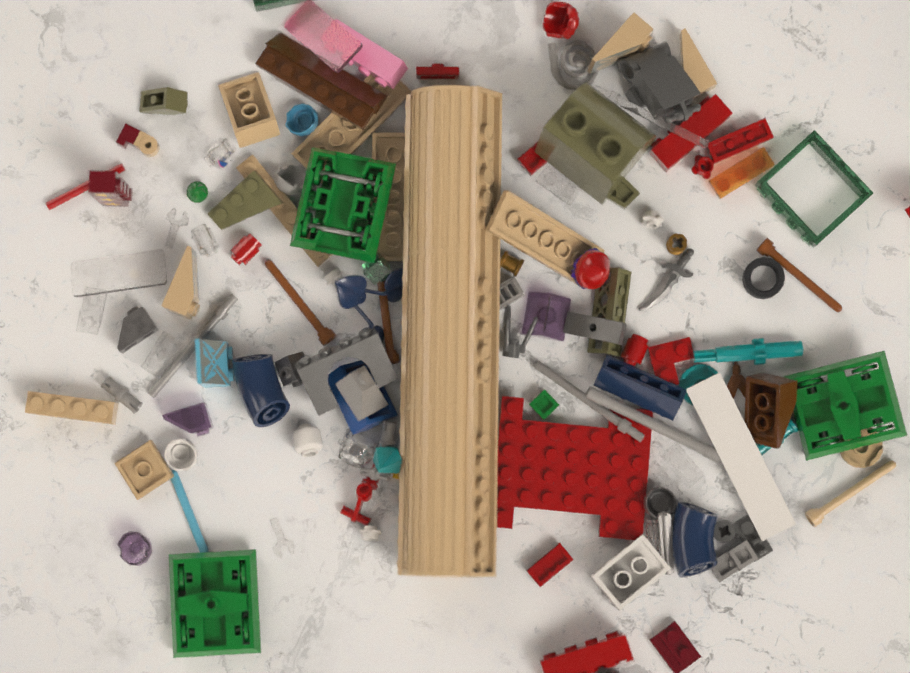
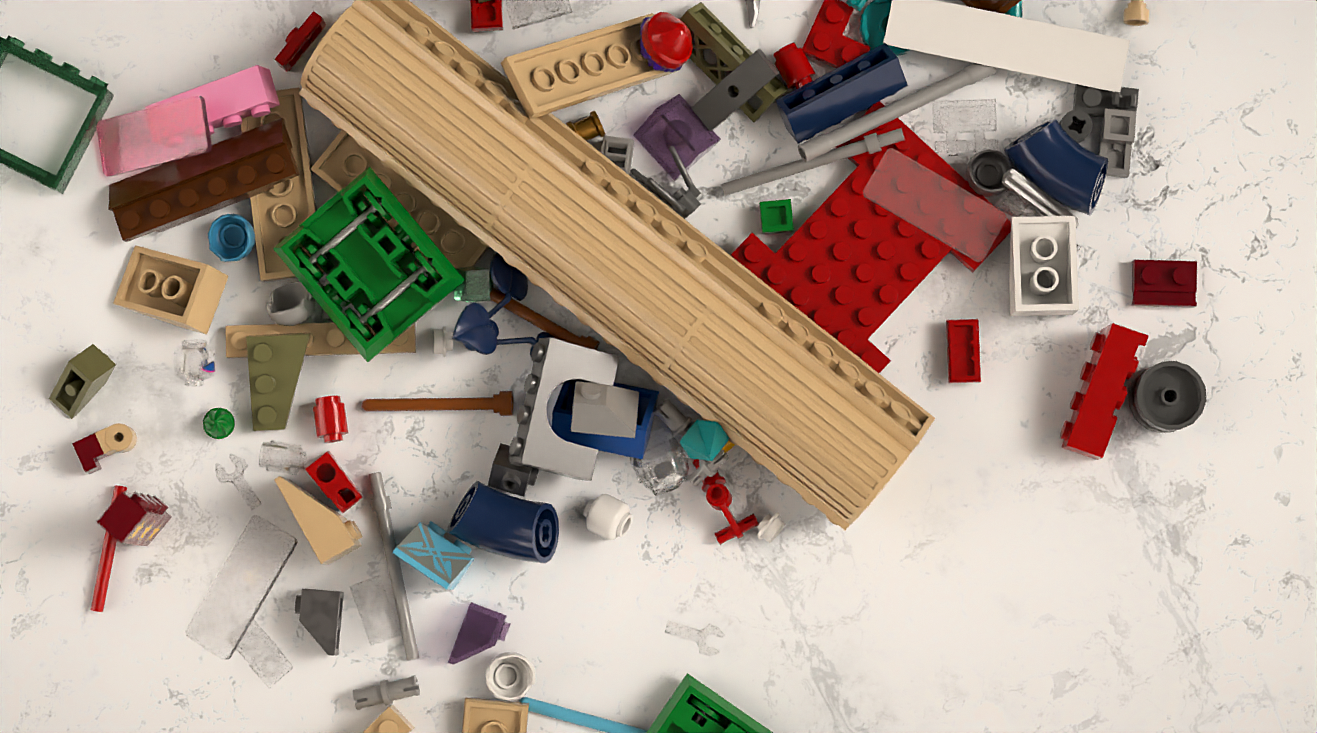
camera: 60 degrees left, 0 degrees up
(213, 278) = (334, 482): none -> red leg
(617, 486) = (934, 205): none -> clear piece

